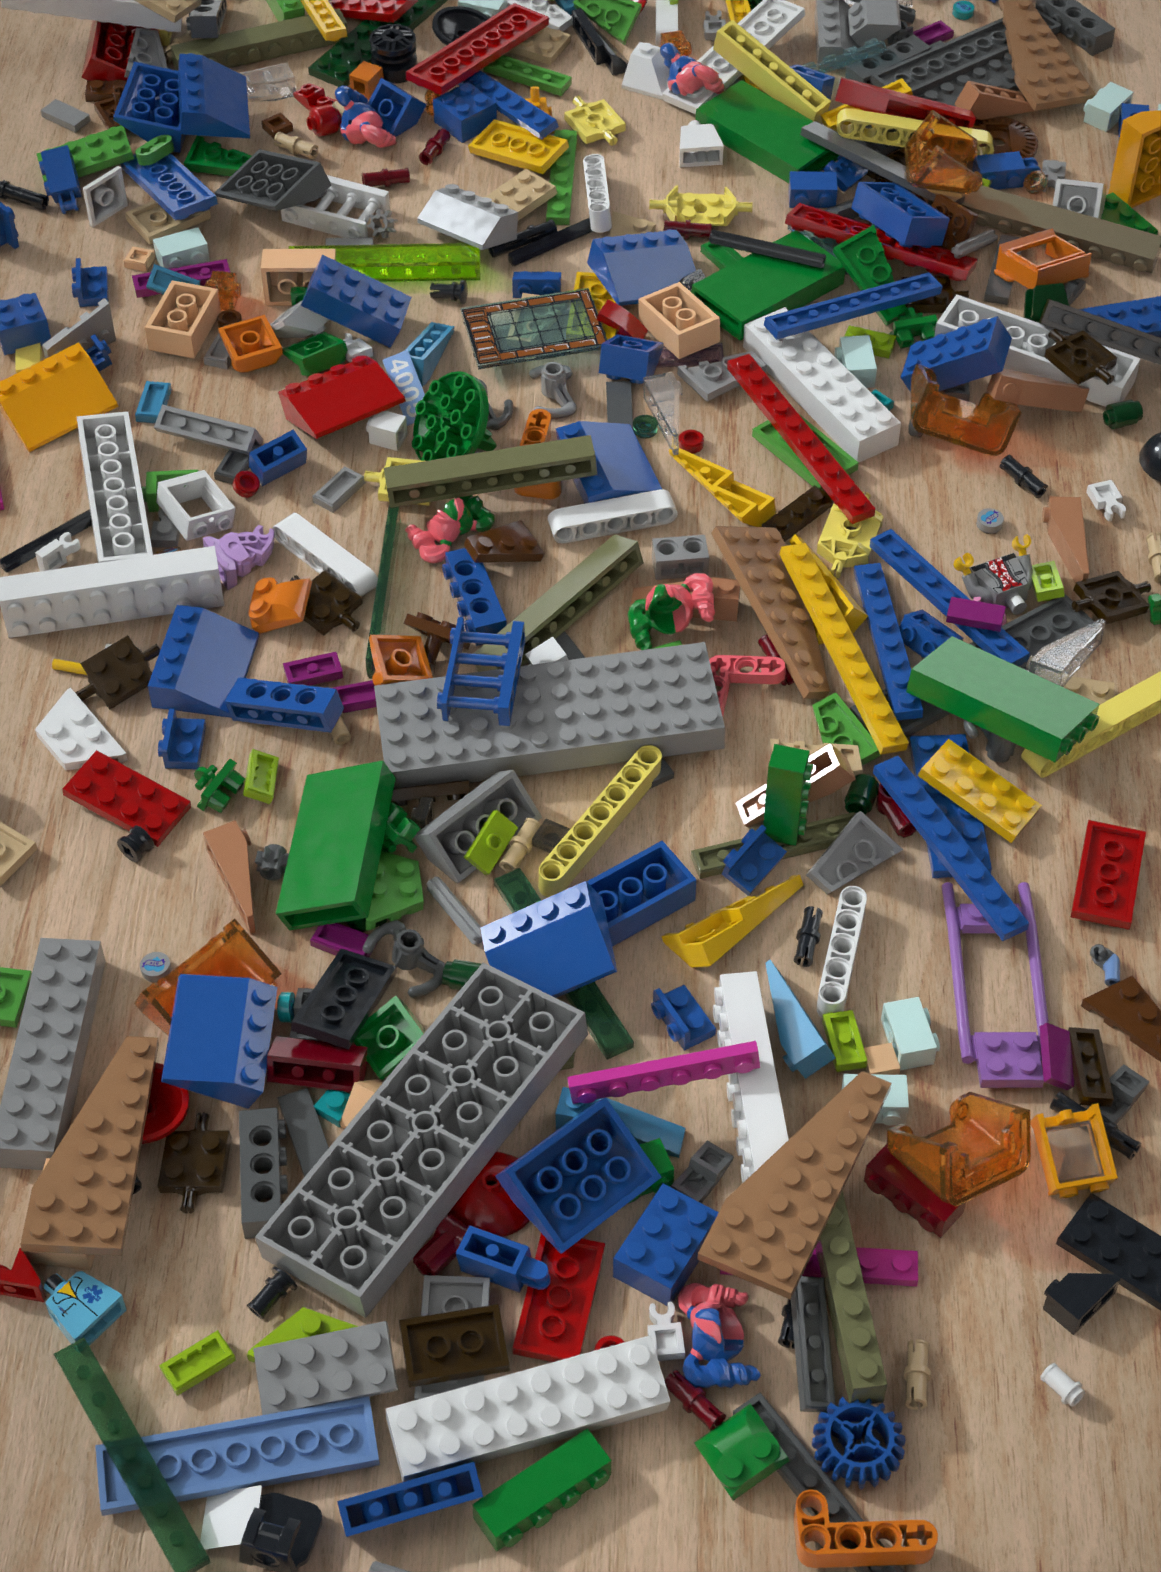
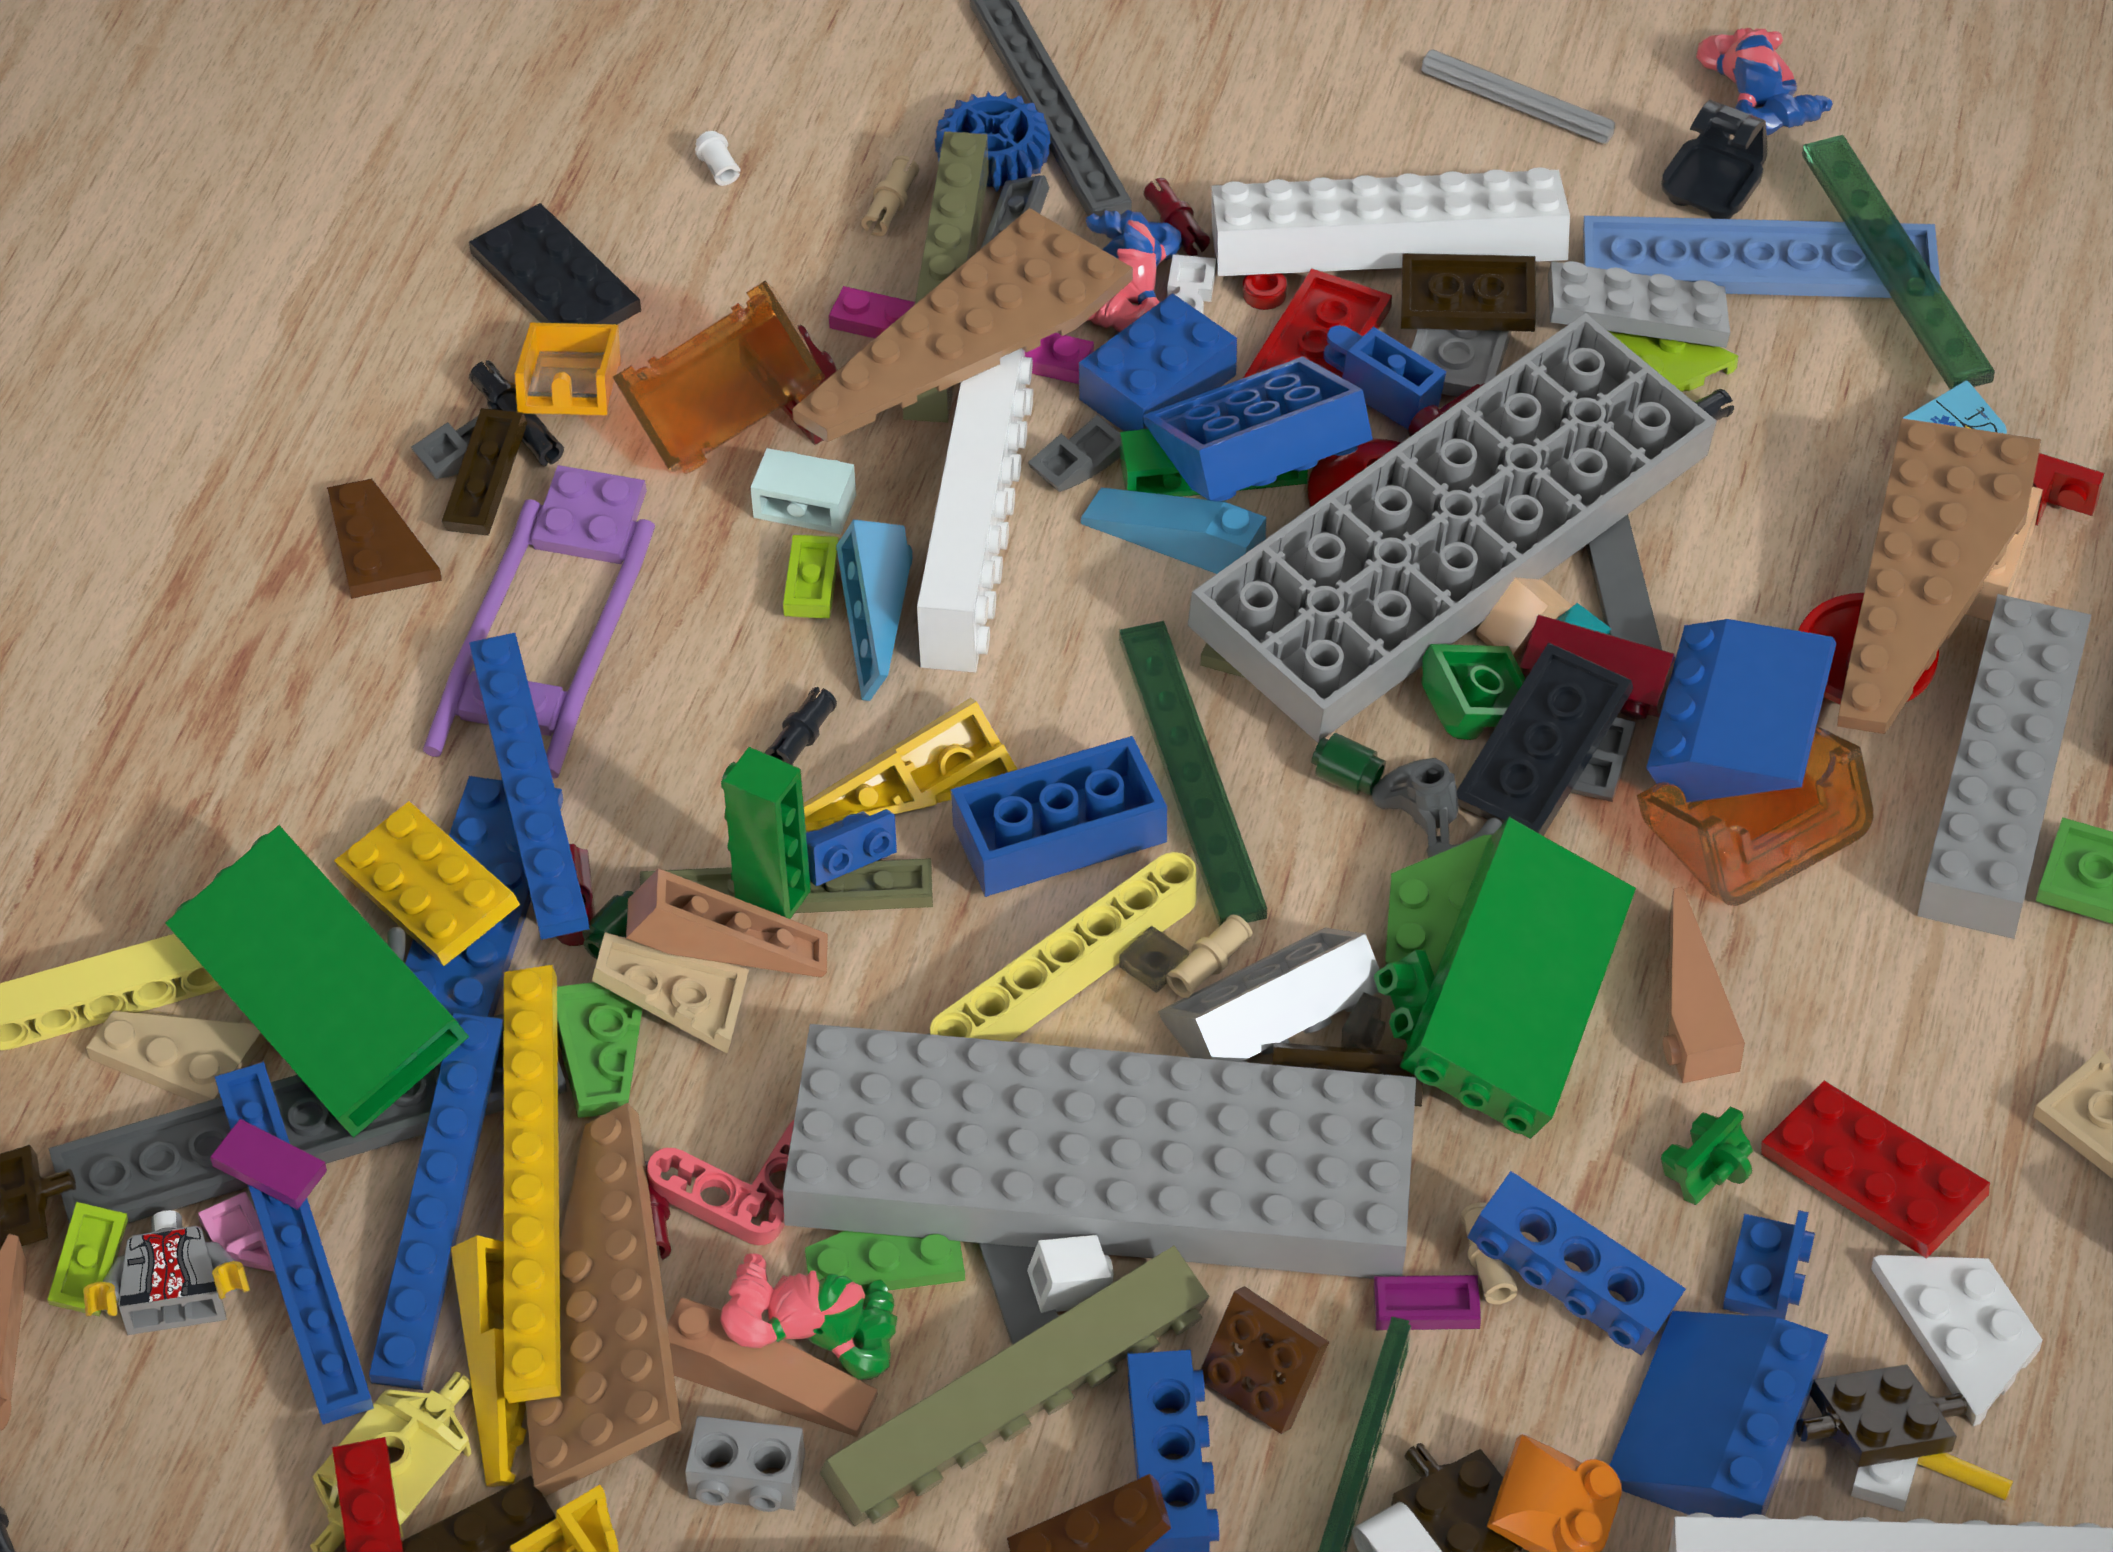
camera: 165 degrees left, 0 degrees up
(135, 843) = (1862, 1074): black wheel -> none
(155, 966) = (1836, 882): light grey tile -> none
(194, 1162) = (1788, 584): dark brown plate -> none
(197, 1363) = (1804, 358): lime plate -> none
(227, 1516) = (1772, 194): white sticker -> none
(255, 1128) = (1696, 548): dark grey brick -> none
(261, 776) = (1632, 1160): lime plate -> none
(272, 862) = (1629, 993): dark grey gear -> none
(285, 1007) = (1634, 768): teal tile -> none
(314, 669) = (1510, 1359): magenta plate -> none
(398, 659) = (1349, 1294): orange slope -> none
(410, 1499) = (1575, 150): blue brick -> none
(455, 910) = (1340, 877): light grey axle -> none
(490, 842) = (1258, 953): lime plate -> none
(505, 683) = (1173, 1148): blue fence -> none
(542, 1490) = (1416, 146): green brick -> none
(554, 942) = (1211, 740): blue slope -> none
(664, 1072) = (1103, 486): dark pink plate -> none
(682, 1016) = (1035, 656): blue bracket -> none
(741, 1452) = (1135, 150): green slope -> none
(850, 916) = (761, 688): white beam -> none
(852, 853) = (667, 840): light grey wing -> none
(864, 1534) = (1032, 38): orange beam -> none
(882, 1060) = (768, 550): light nougat tile -> none
(910, 1033) = (714, 564): light aqua brick -> none
(924, 632) = (356, 1203): blue bracket -> none
(990, 520) = (107, 1441): light grey tile -> none
(1056, 1056) = (524, 488): magenta tile -> none
(1066, 655) = (158, 1071): clear slope -> none
(1079, 1297) = (646, 229): black slope -> none
(1108, 874) = (293, 735): red plate -> none
(1108, 962) = (369, 613): arm -> none

